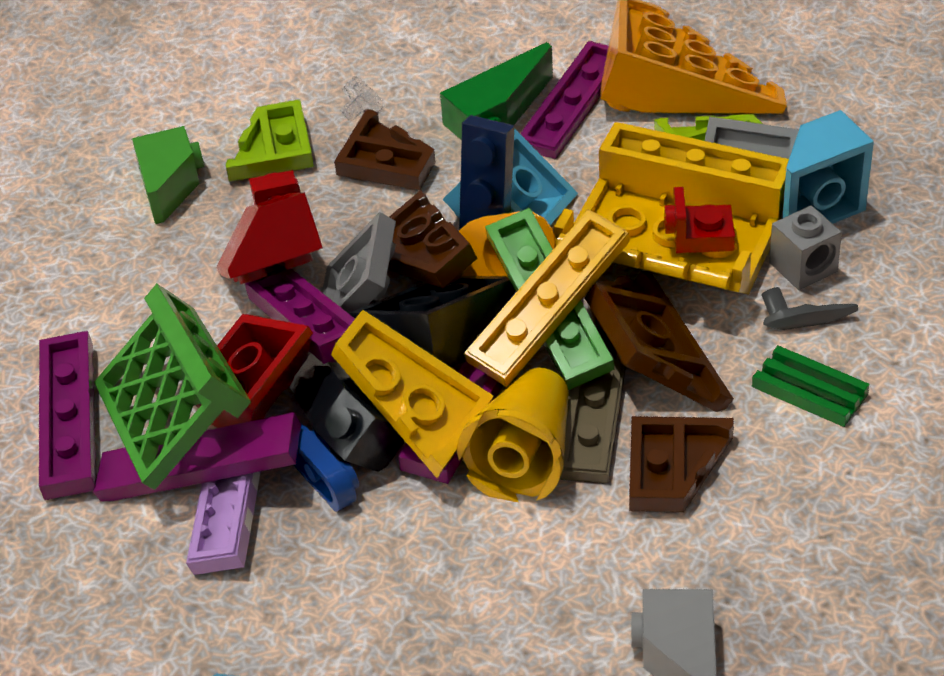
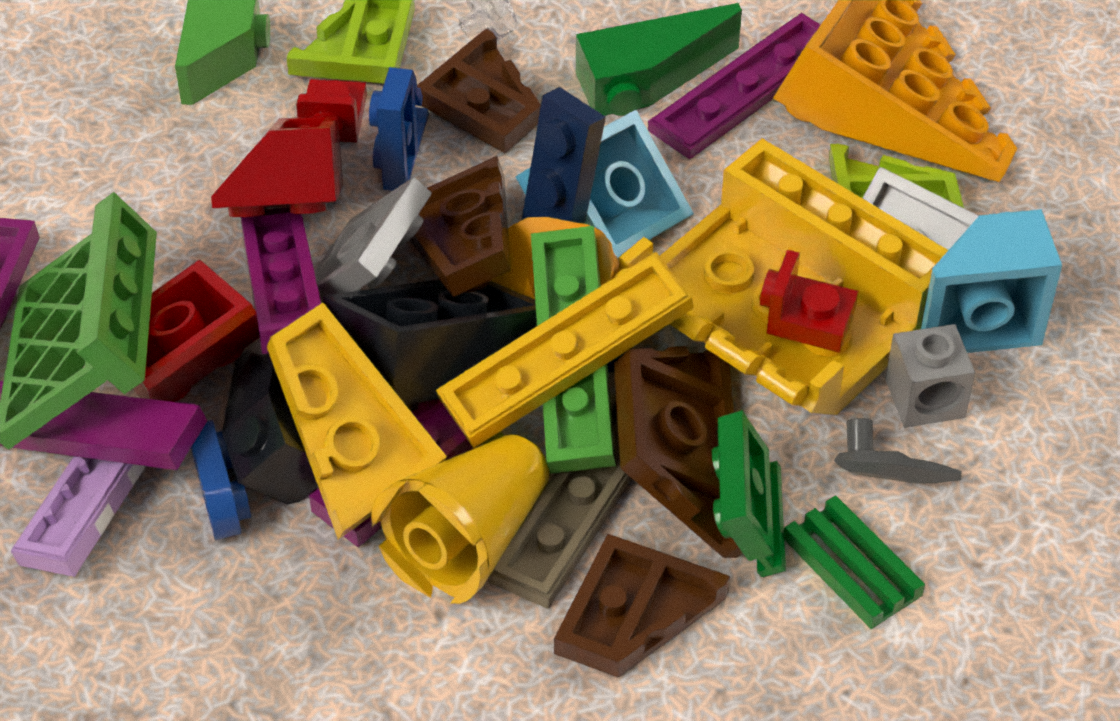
camera: 15 degrees right, 5 degrees up
(336, 178) = (398, 125): none -> blue wing
(724, 367) = (749, 494): none -> green plate

